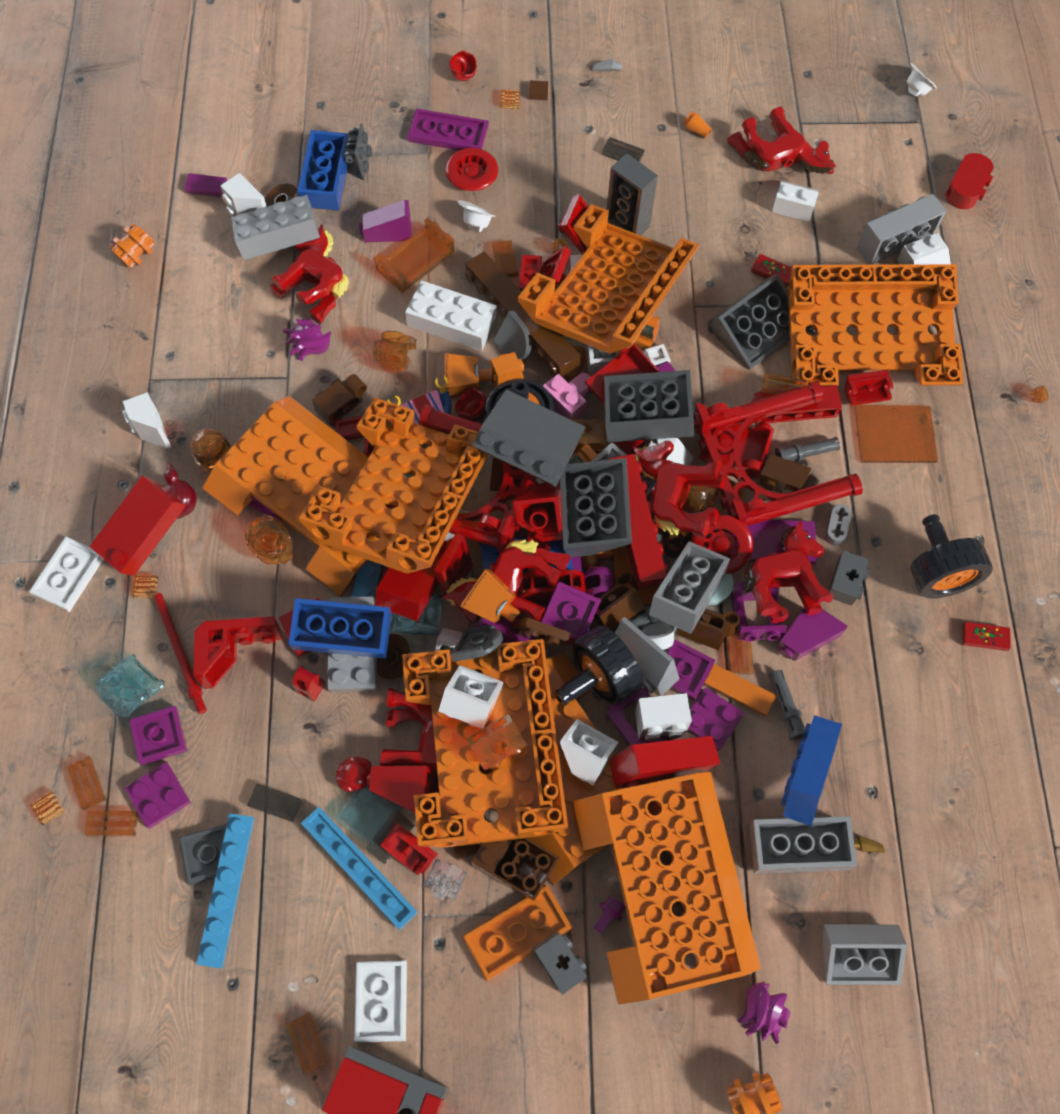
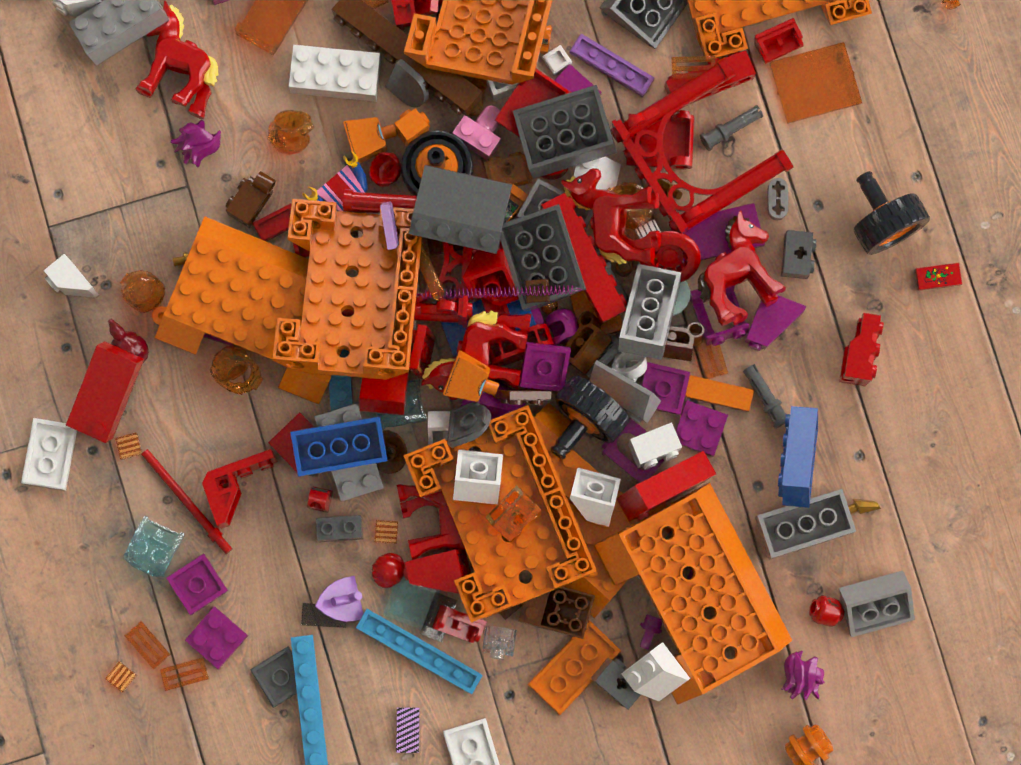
camera: 15 degrees left, 15 degrees up
(295, 791) = (341, 600): none -> shield
(318, 718) = (339, 528): none -> dark grey brick
(319, 950) = (407, 730): none -> tile
(365, 736) = (386, 531): none -> clear orange tile
(456, 437) = (389, 225): none -> lavender tile
(482, 492) = (435, 280): none -> clear orange piece
(546, 523) = (420, 294): none -> magenta piece
(583, 532) = (537, 299): none -> reddish brown tile
(603, 961) = (656, 674): none -> white slope
(706, 373) = (611, 65): none -> medium lavender tile
(786, 475) = (718, 164): reddish brown hinge -> none
(805, 946) = (826, 611): none -> red head
(892, 691) = (862, 351): none -> red piece

